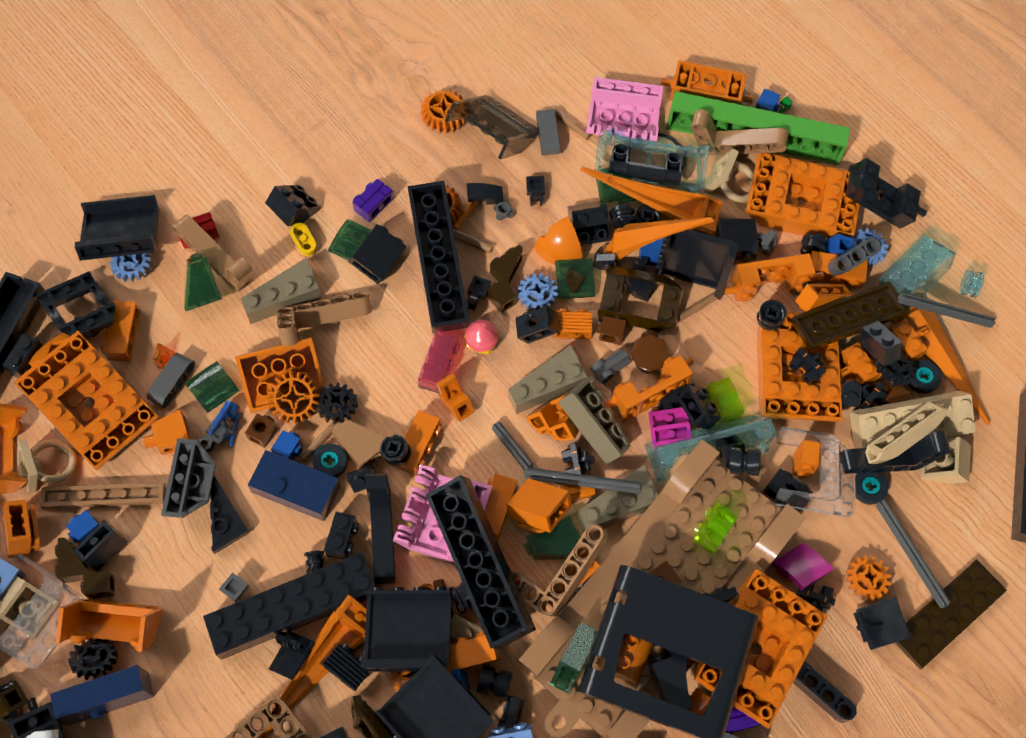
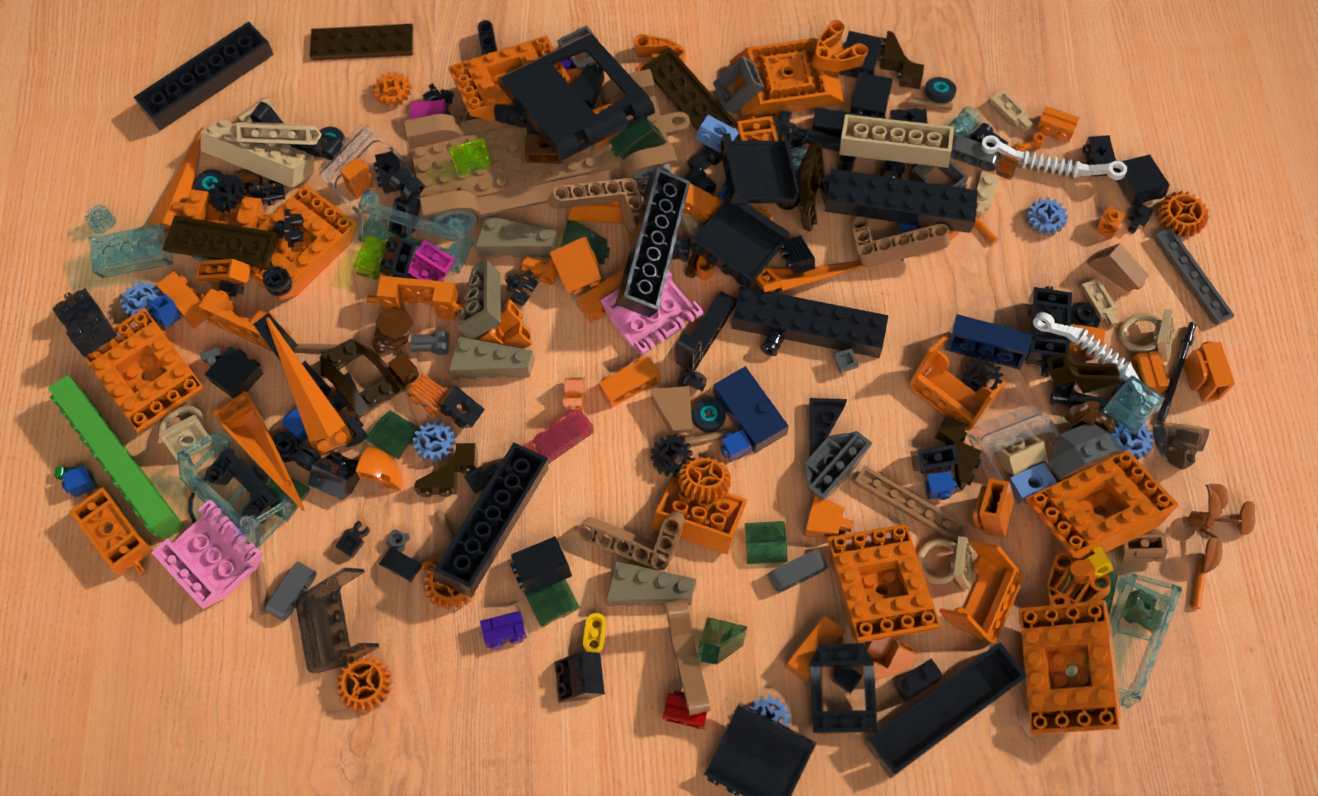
camera: 140 degrees left, 0 degrees up
(162, 355) = (791, 598): clear orange slope -> none
(219, 436) = (785, 496): black plate -> none
(227, 412) = (764, 506): blue plant -> none
(261, 438) = (749, 466): reddish brown brick -> none
(291, 654) = (832, 285): black hinge -> none
(341, 535) = (740, 347): black brick -> none
(395, 450) = (653, 374): black wheel -> none
(481, 336) = (510, 430): coral hair -> none
(512, 445) = (558, 322): dark grey axle -> none
(574, 280) = (397, 427): dark brown tile -> none
(583, 480) = (530, 263): dark grey axle -> none
(744, 141) = (158, 470): medium nougat beam -> none
(813, 243) = (181, 327): black wheel -> none
(851, 393) = (276, 198): black plate -> none
(861, 254) = (166, 285): dark grey beam -> none
(881, 343) = (222, 204): black brick -> none
(881, 623) = (412, 58): black plate -> none
(913, 554) = (347, 83): dark grey axle -> none
(946, 310) = (145, 206): dark grey axle -> none

